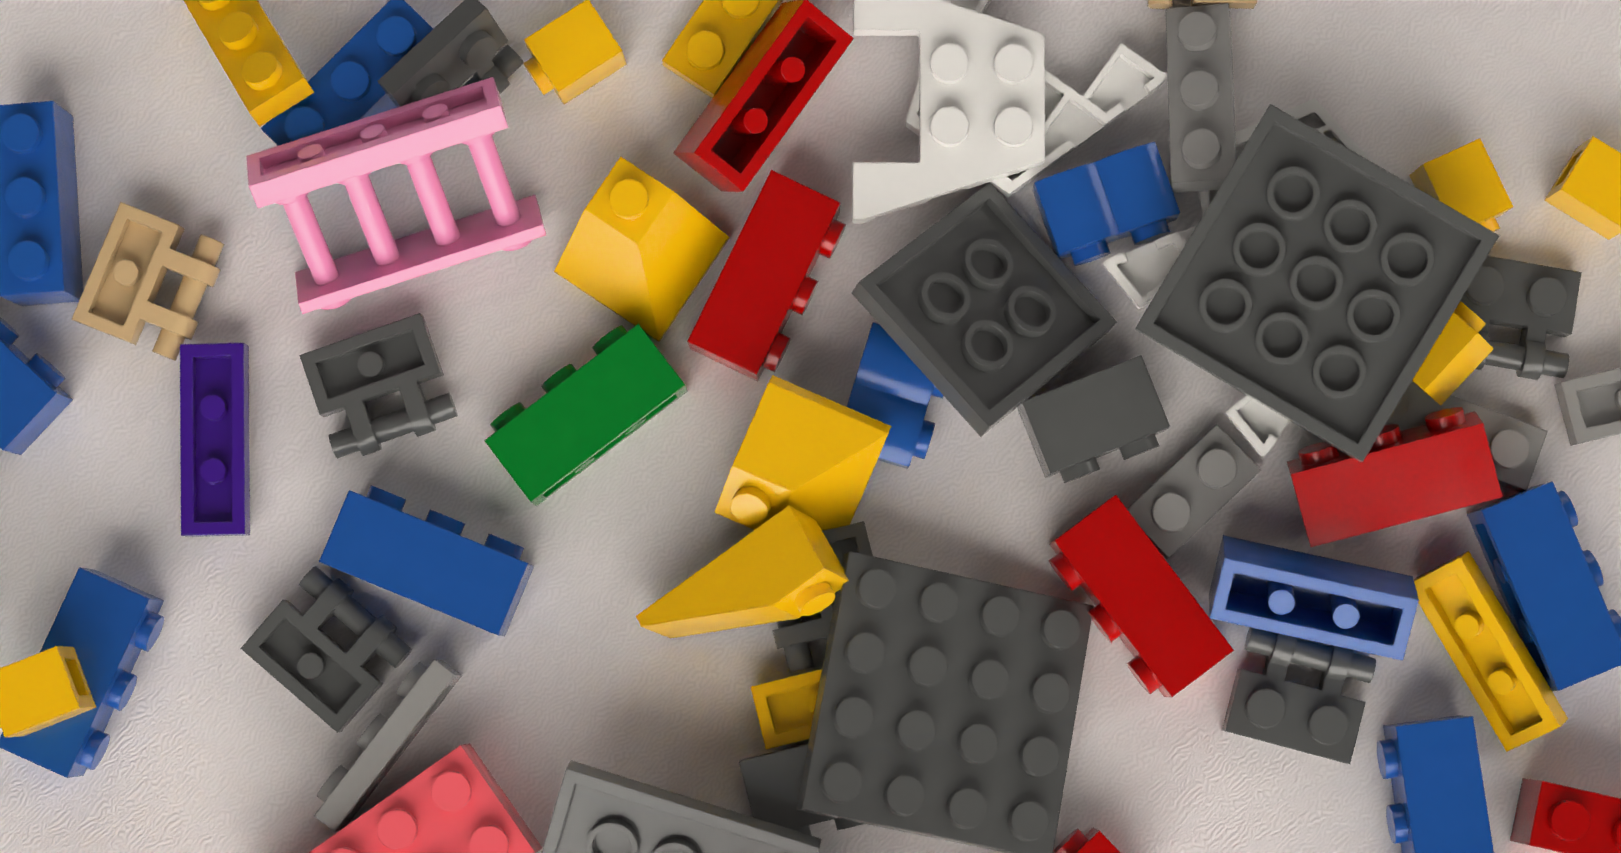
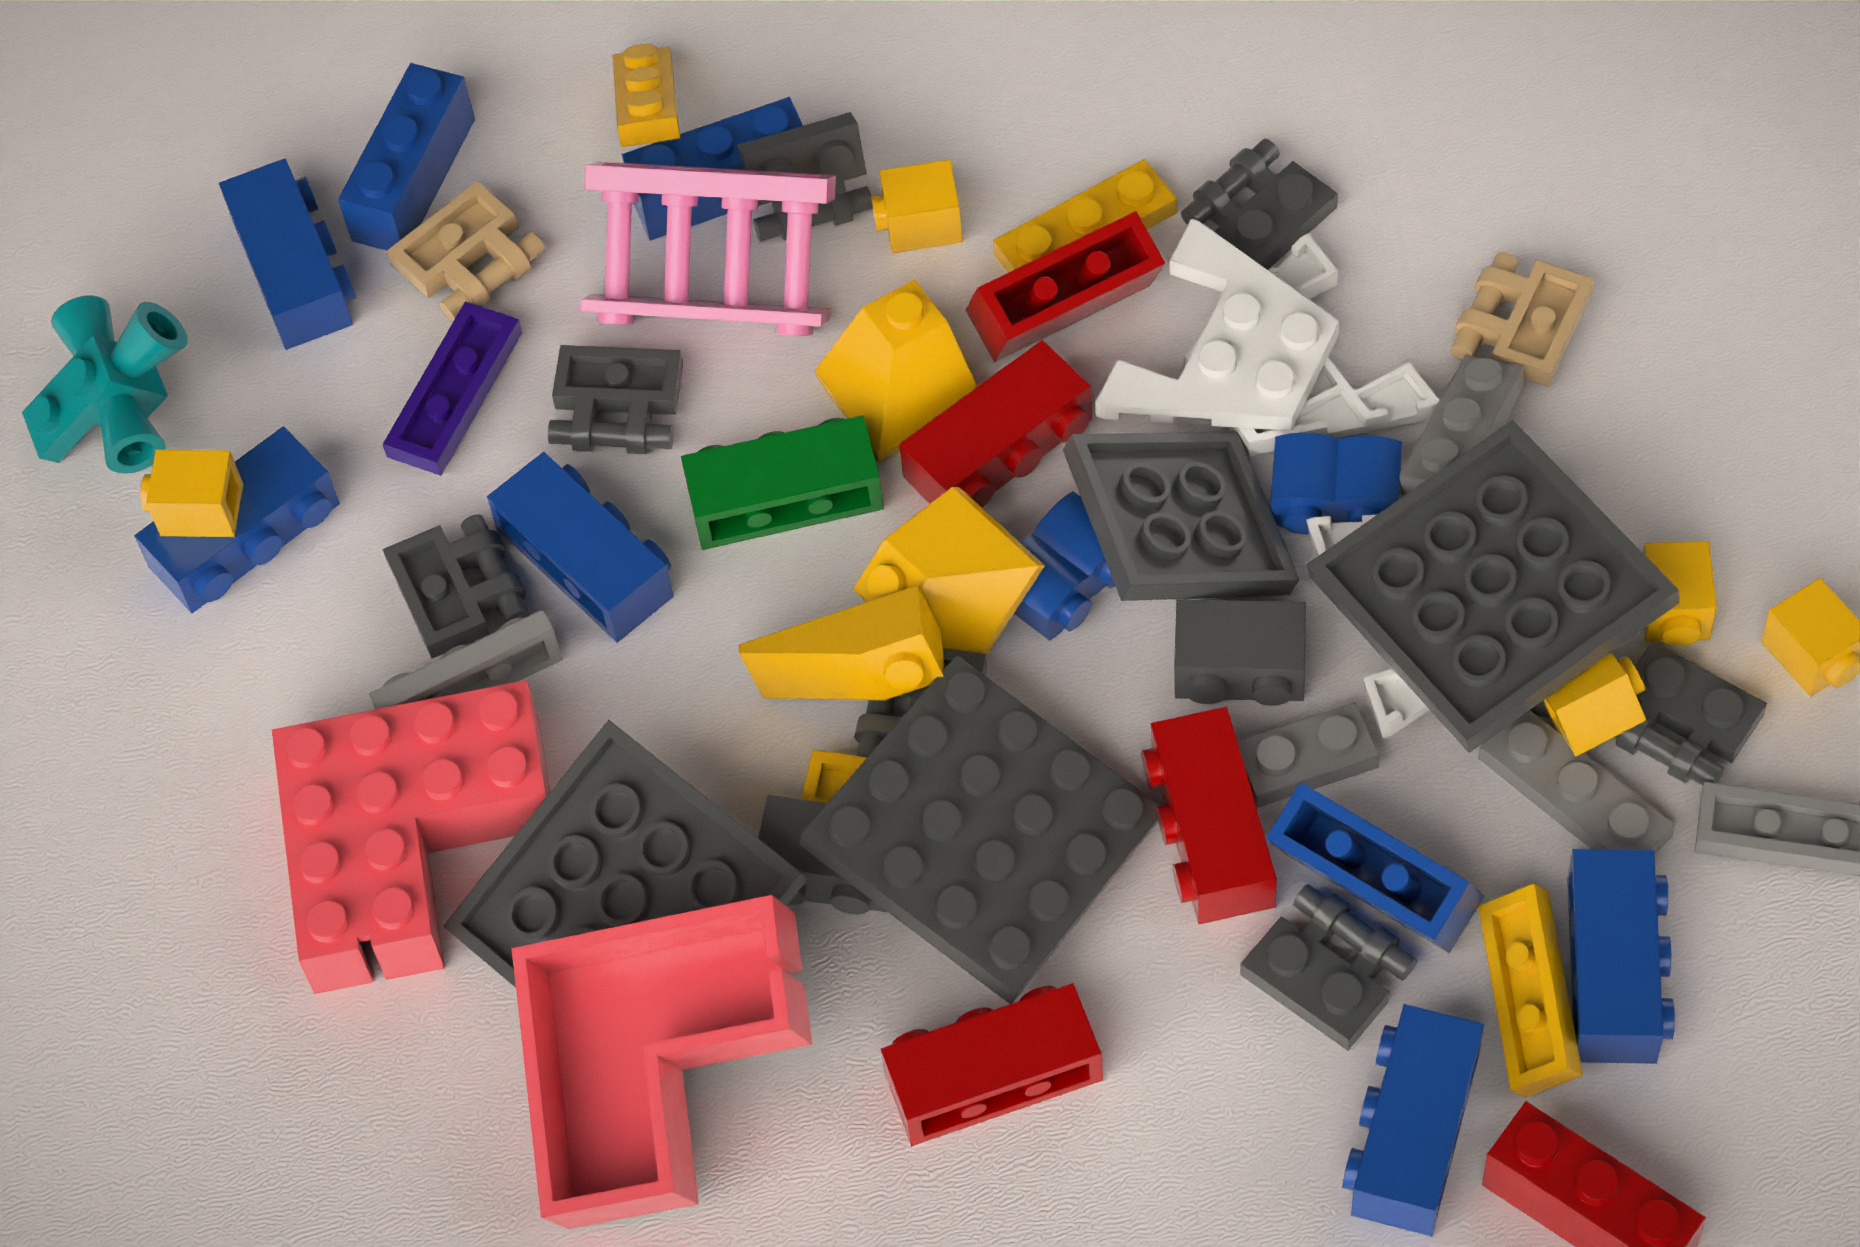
camera: 30 degrees right, 25 degrees down
(1399, 481) = (1499, 792): red brick -> none

